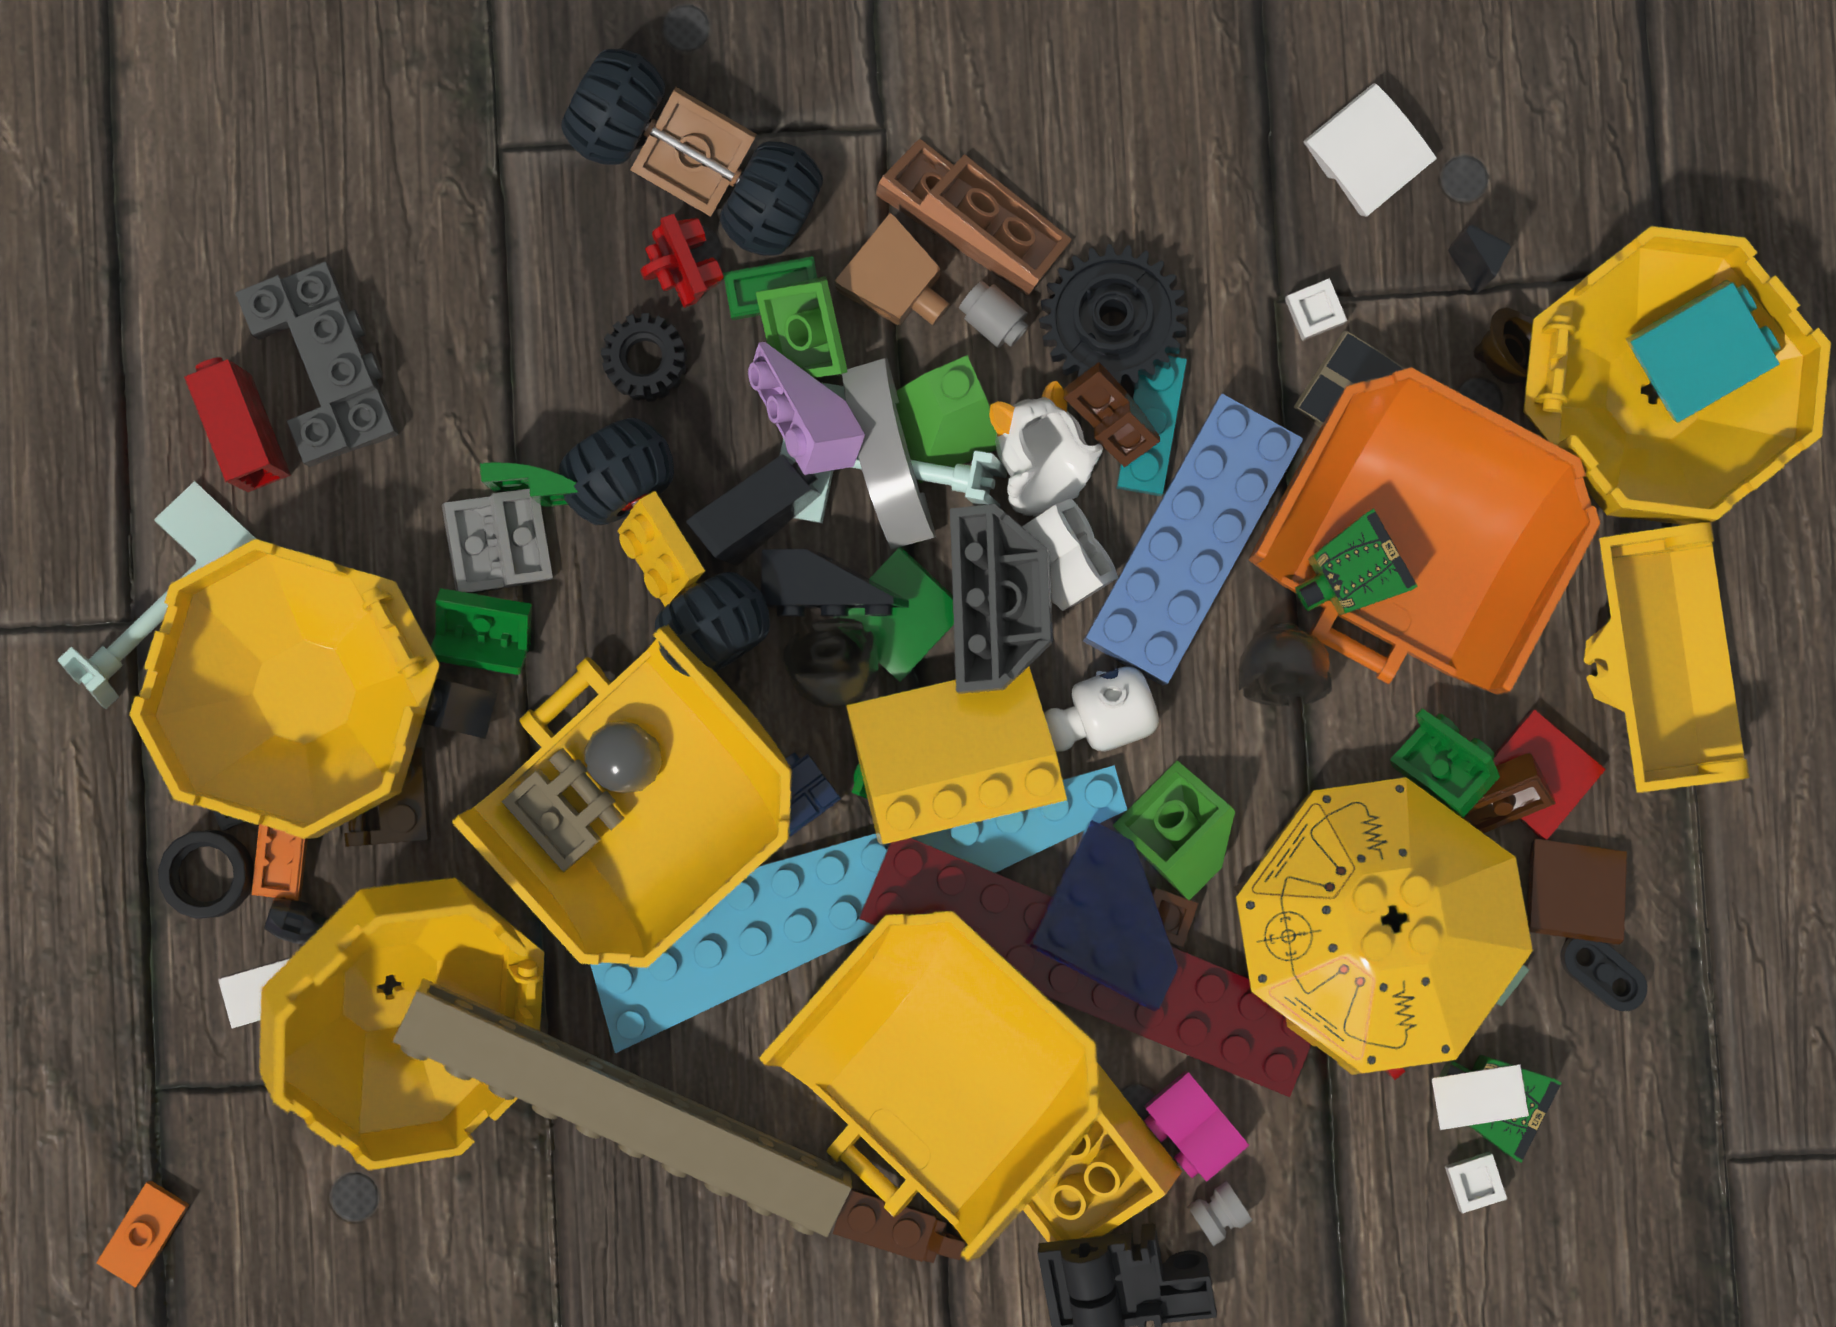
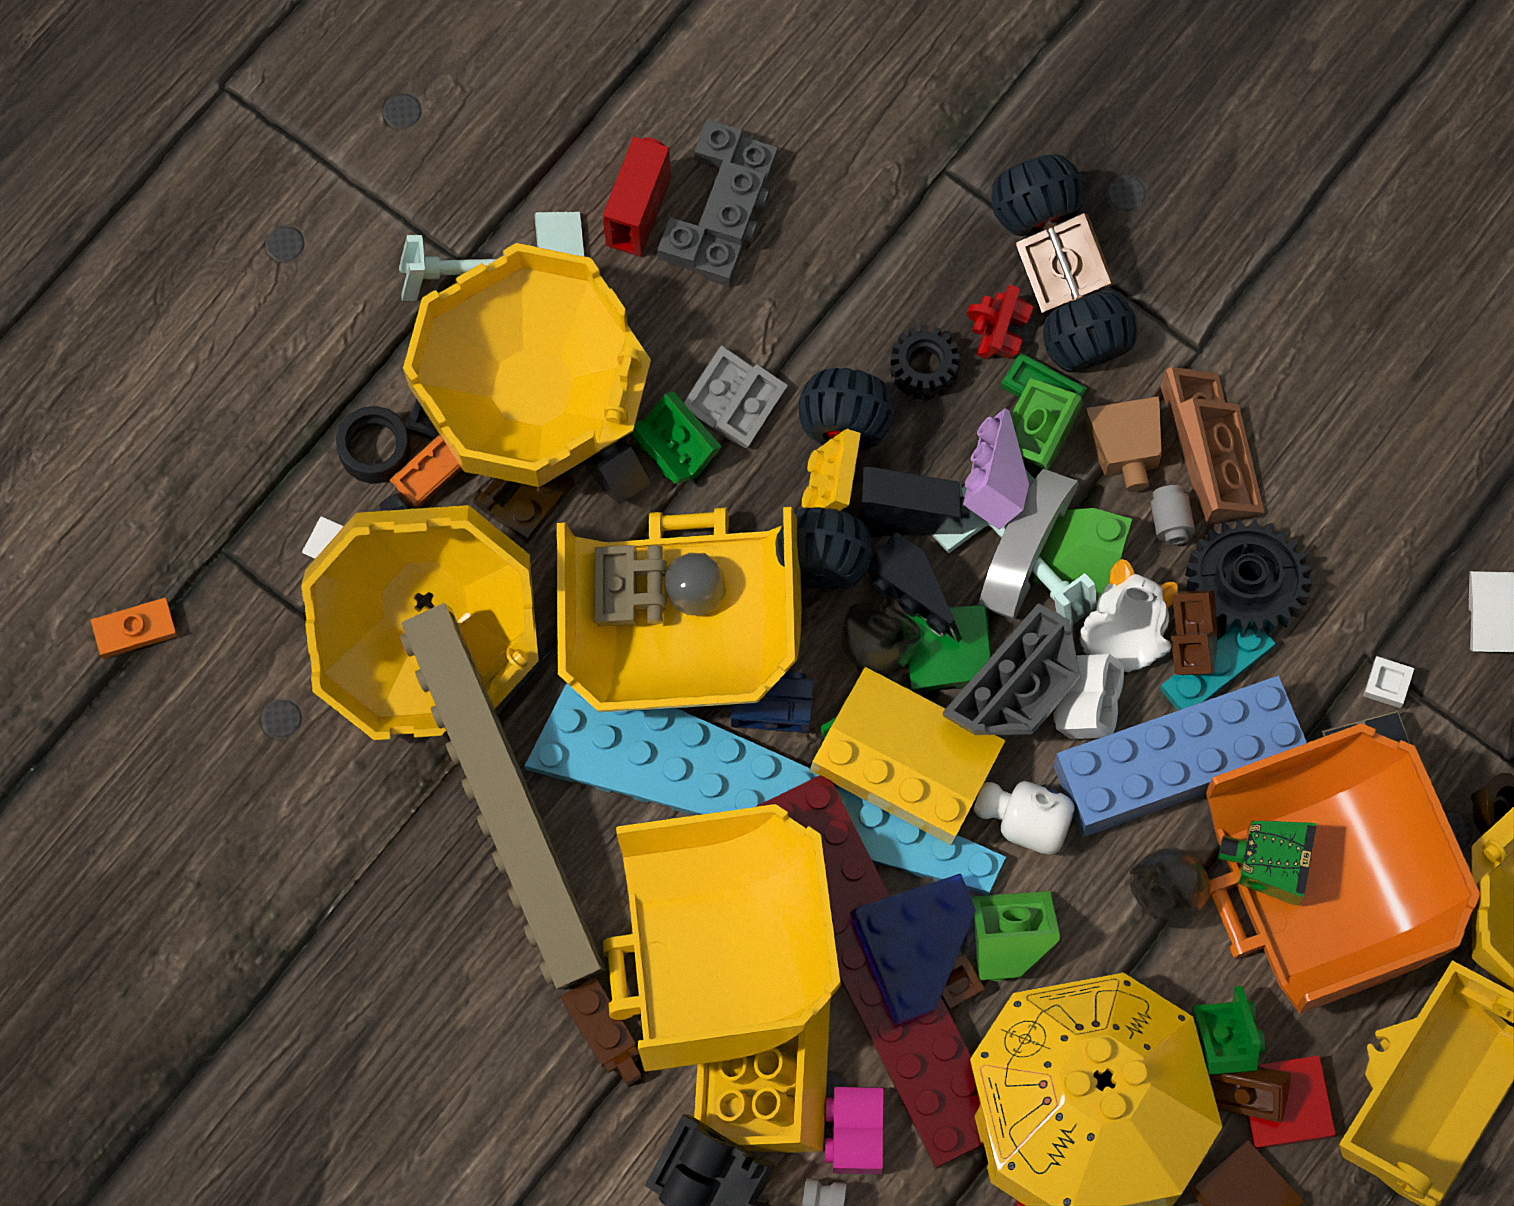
camera: 45 degrees right, 15 degrees down
(545, 486) = (785, 365): green slope -> none

